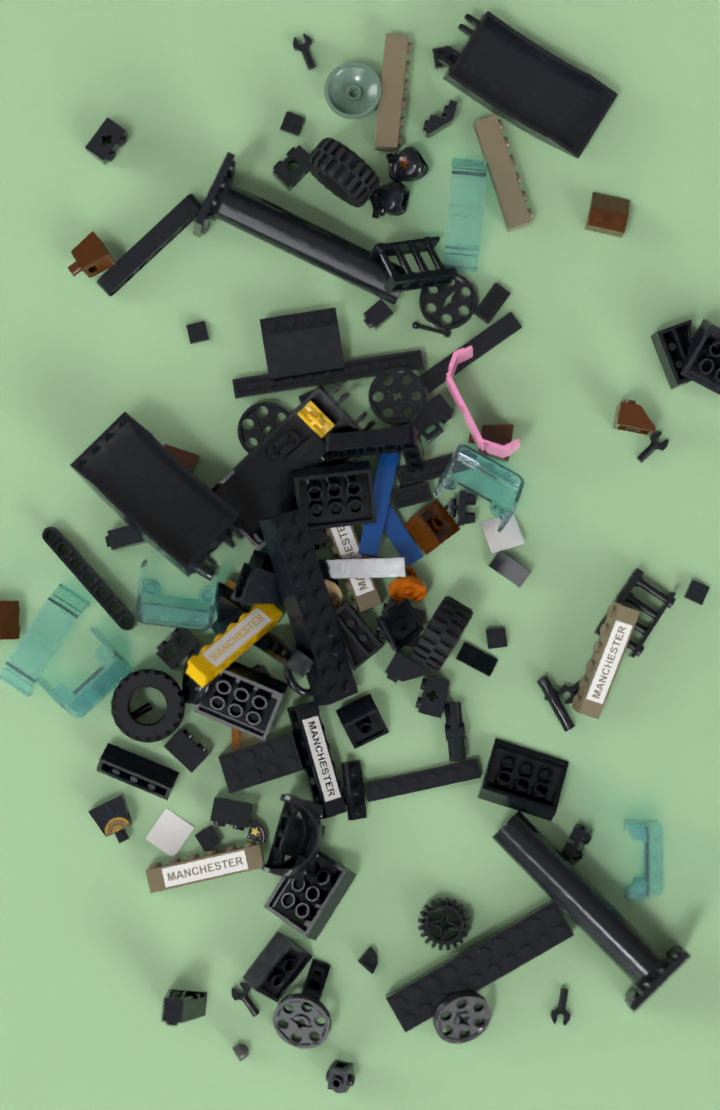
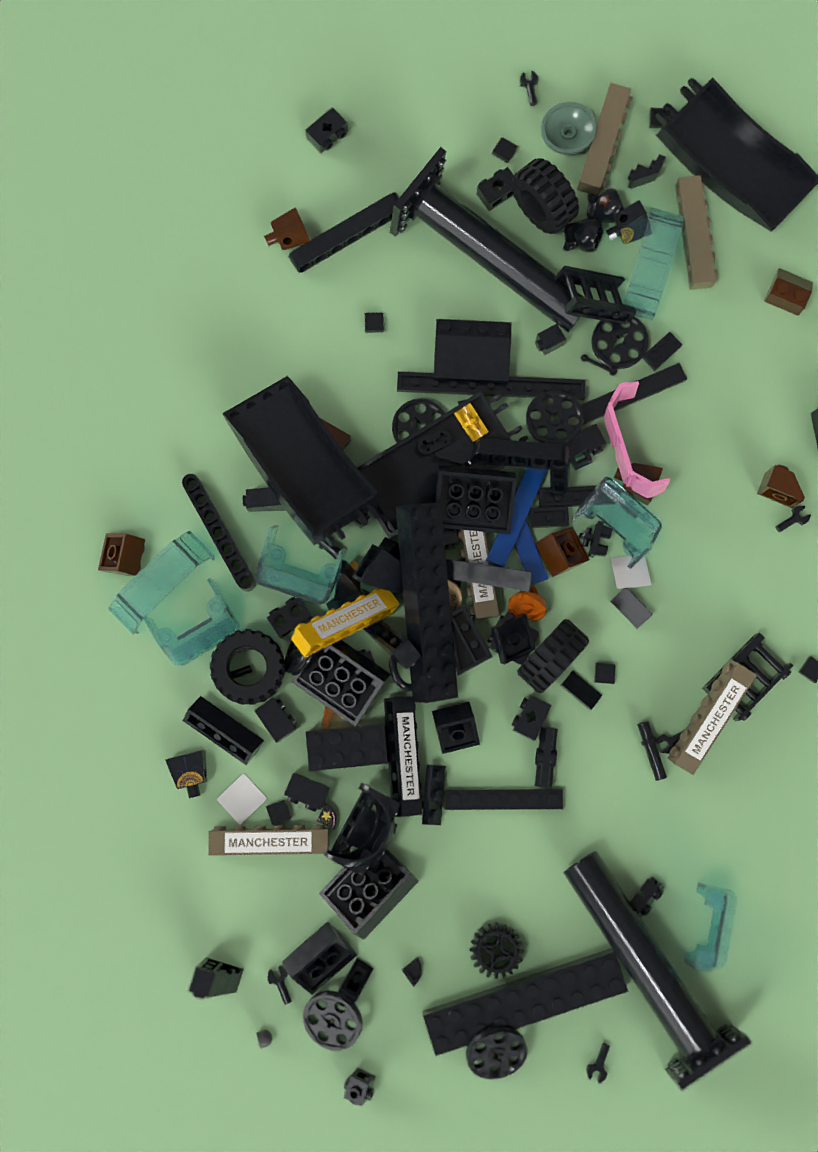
camera: 15 degrees right, 5 degrees down
(404, 669) = (508, 683): black slope -> none
(433, 180) = (629, 223): none -> black torso
(523, 779) = (605, 821): black slope -> none

